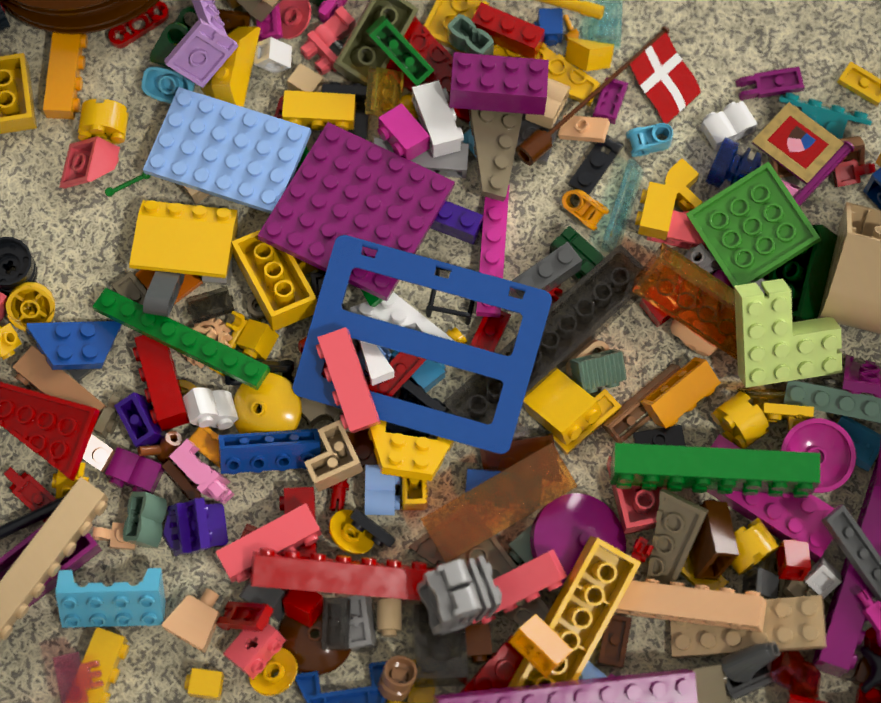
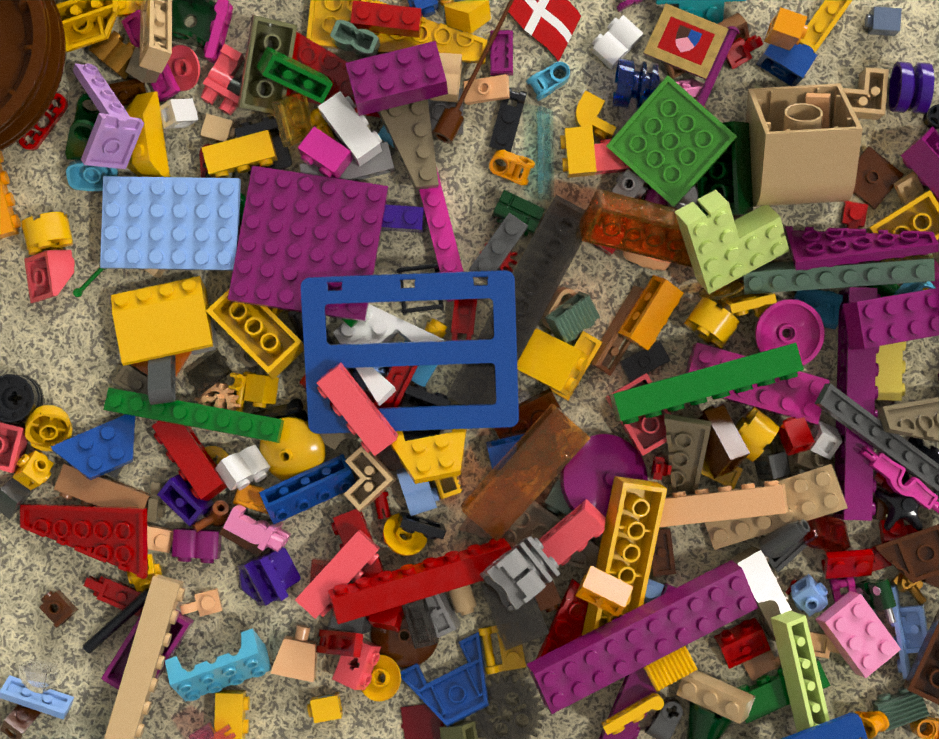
camera: 15 degrees left, 15 degrees up
(144, 519) = (221, 585): sand green brick -> none
(397, 678) = (489, 653): medium nougat wheel -> none

